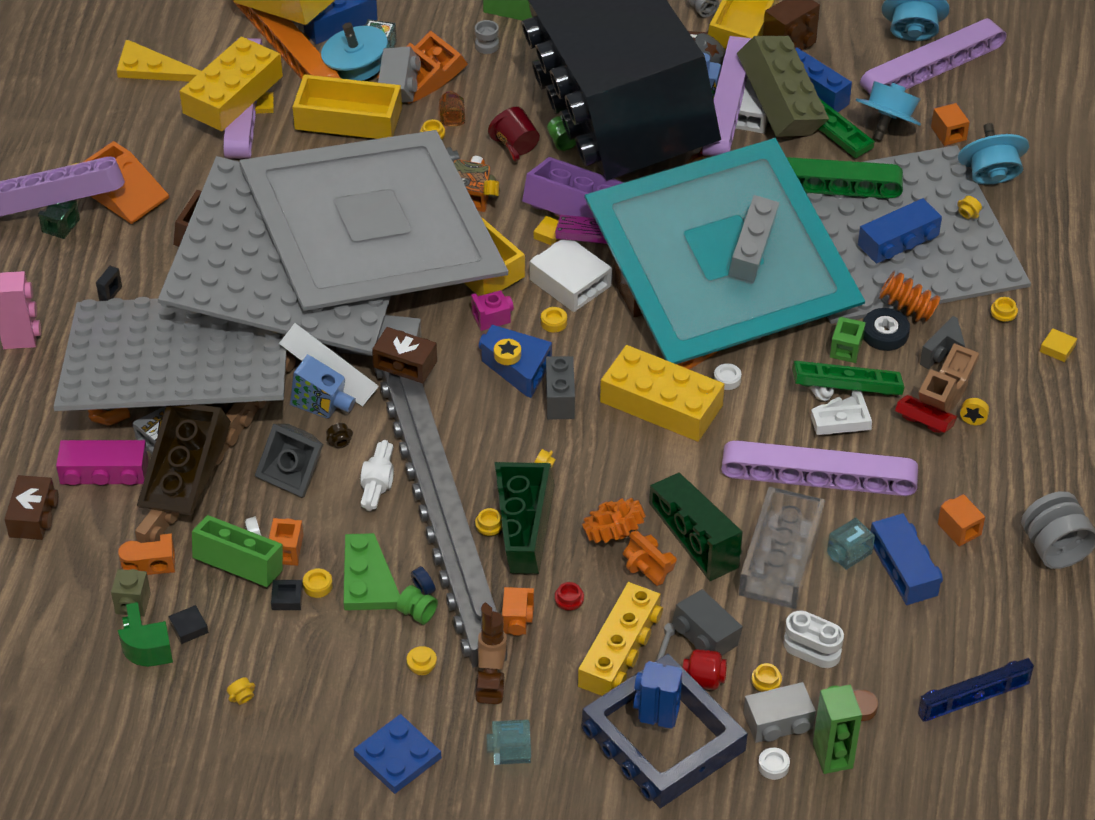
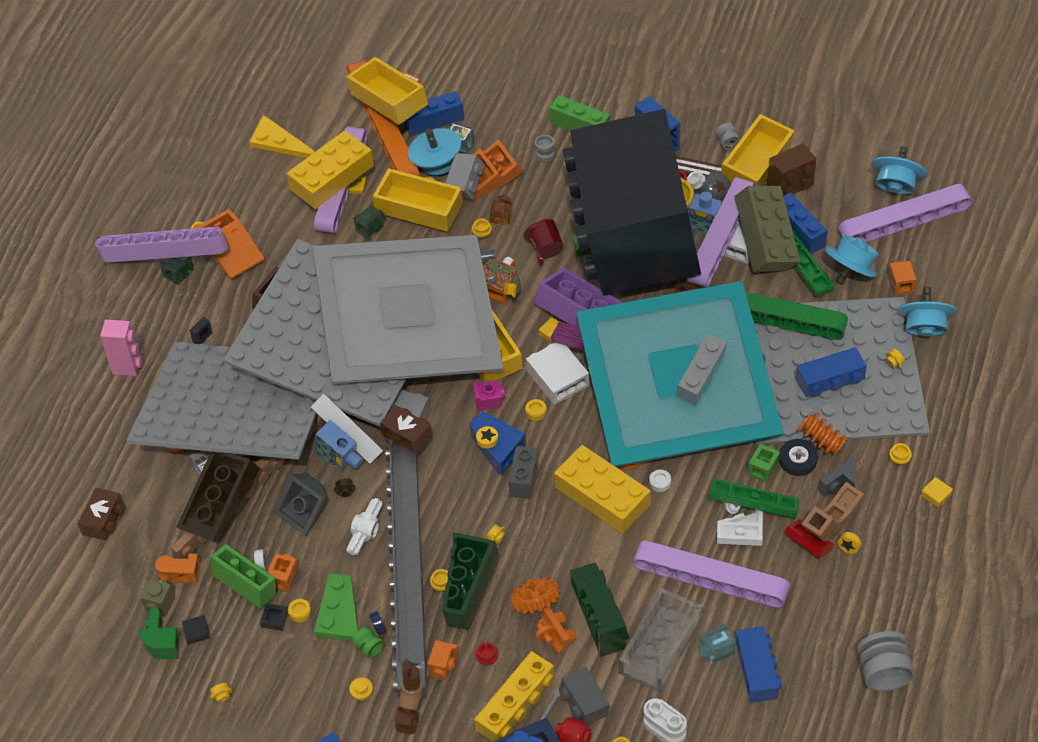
camera: 15 degrees right, 5 degrees up
(102, 462) = (160, 483): dark pink brick -> none
(291, 137) = (369, 222): none -> clear green brick
(961, 520) = (811, 637): orange brick -> none

